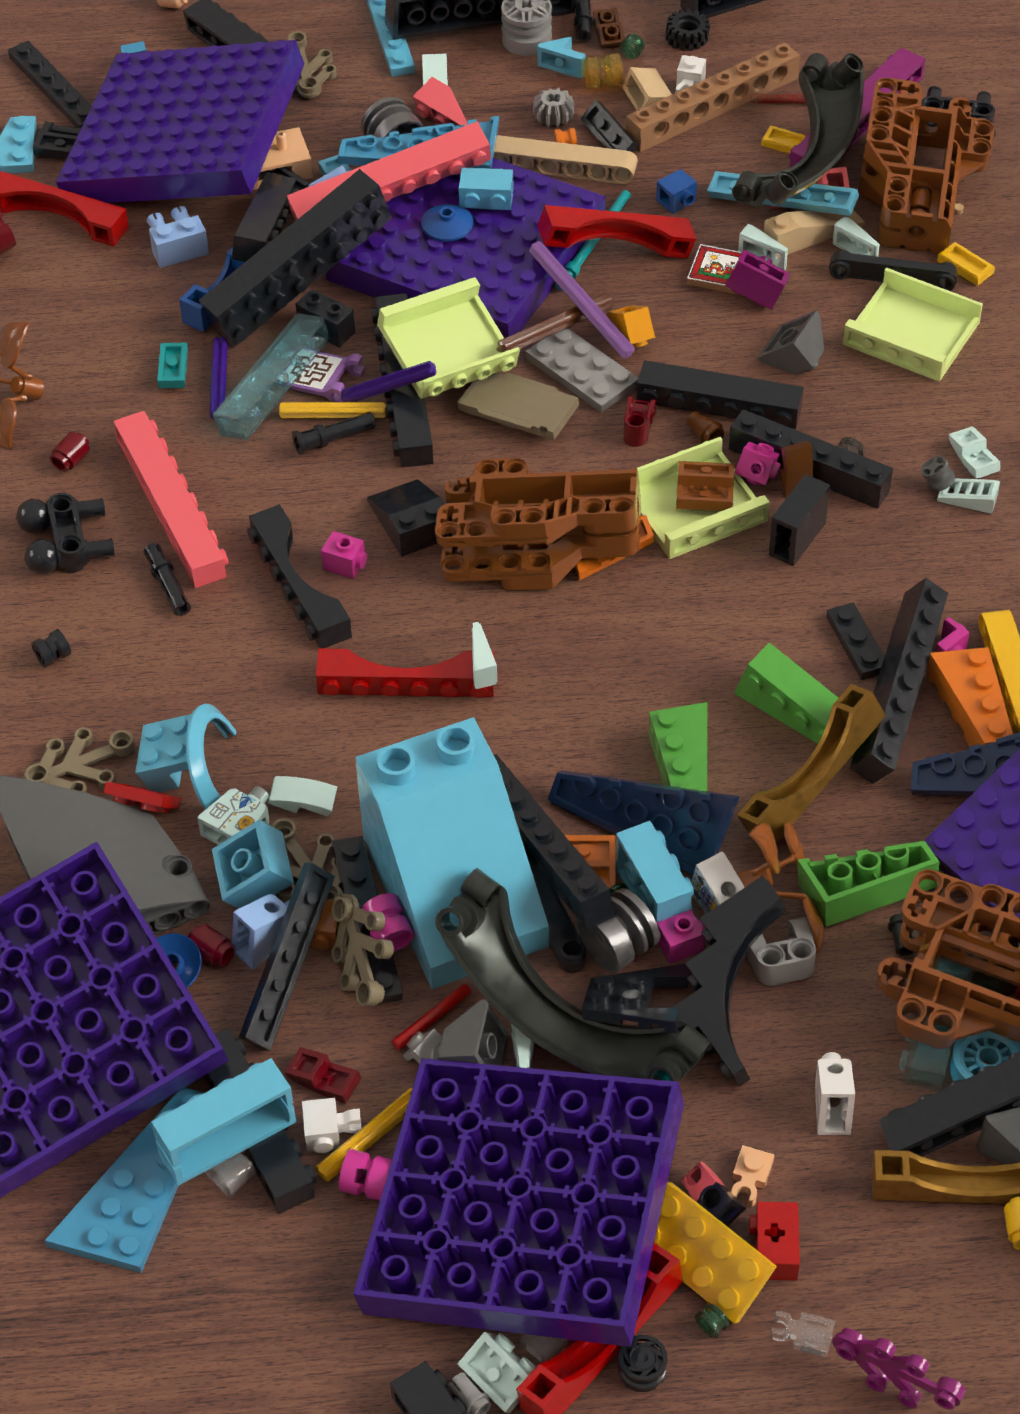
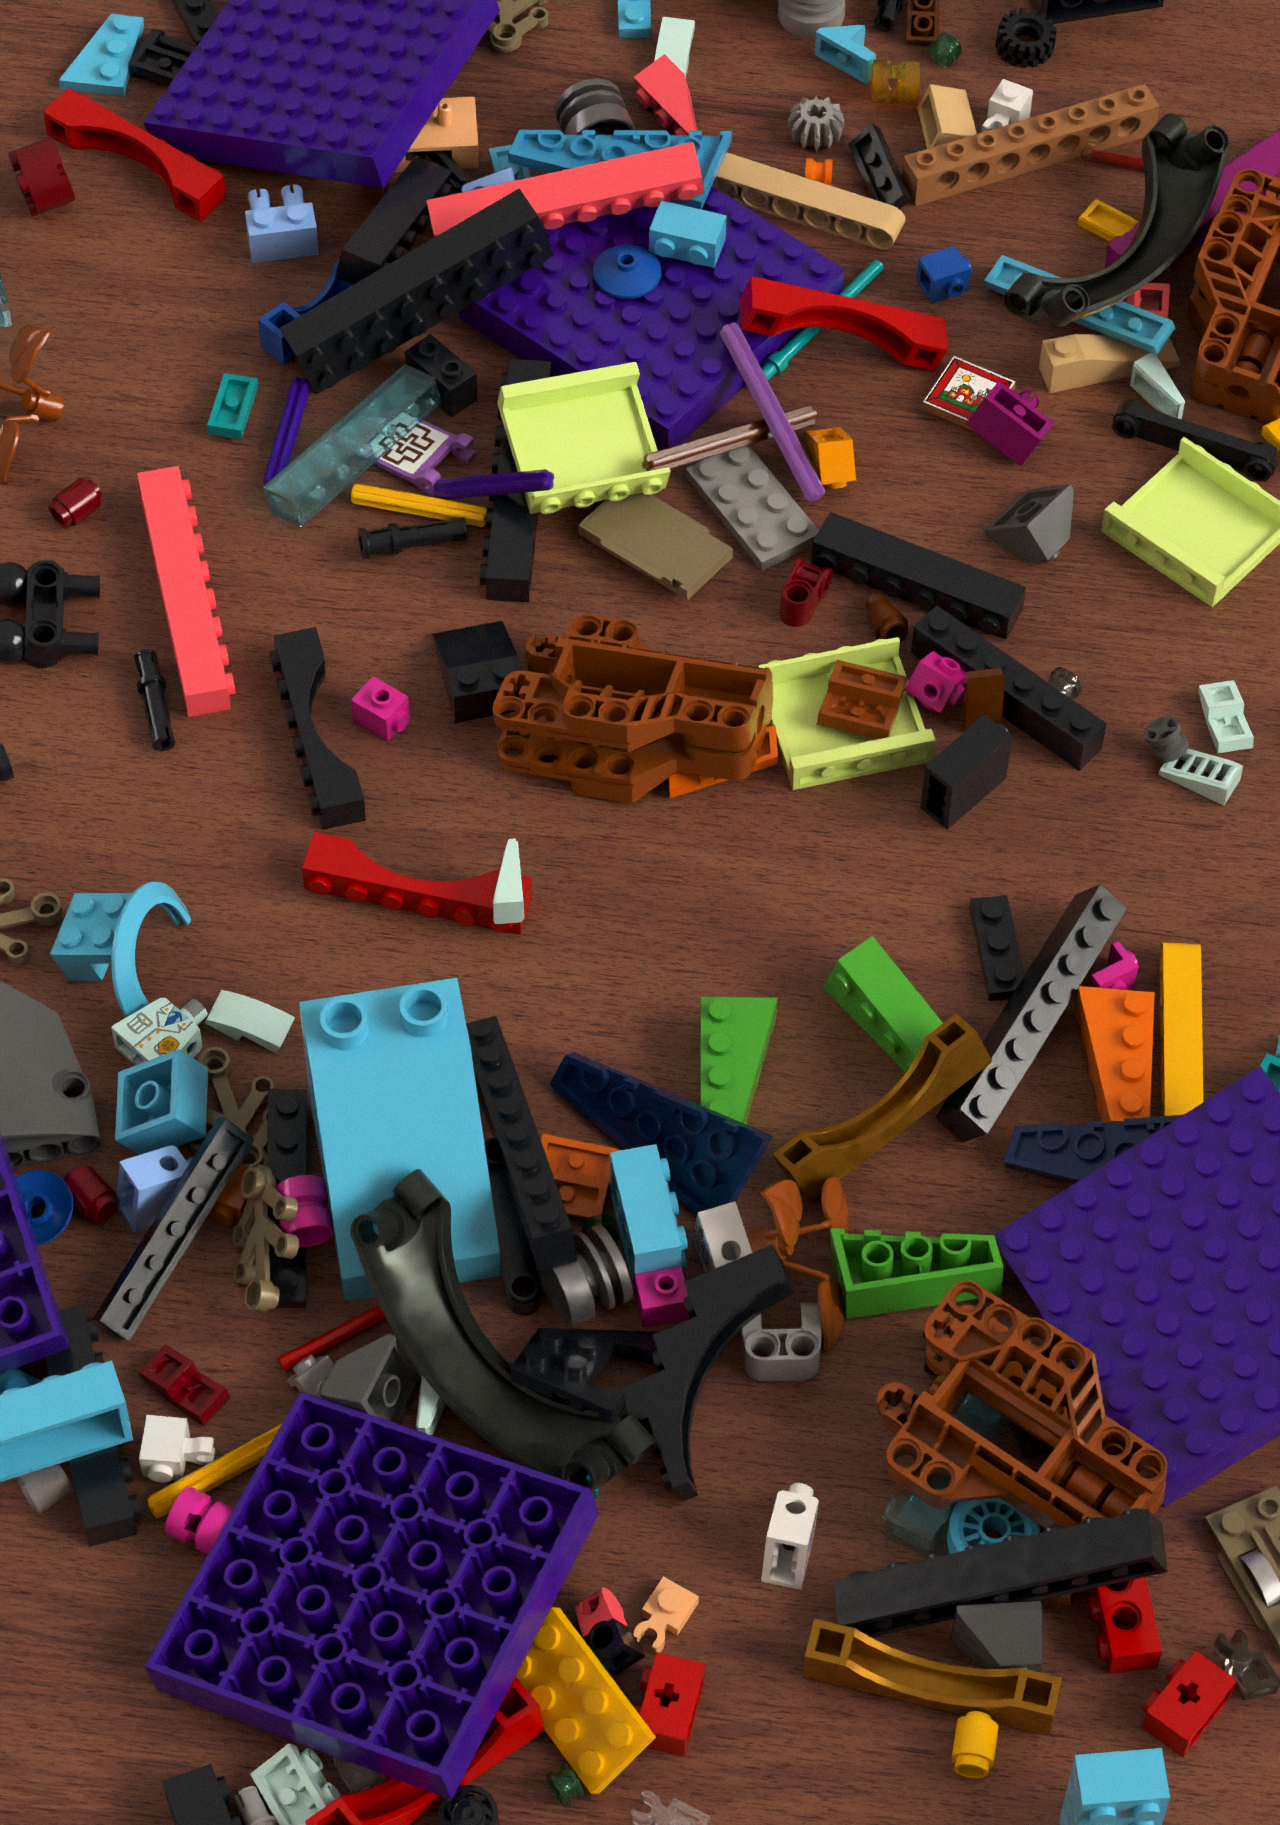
camera: 10 degrees right, 5 degrees up
(135, 795) = (58, 989): red plate -> none
(760, 244) = (1031, 374): light aqua slope -> none

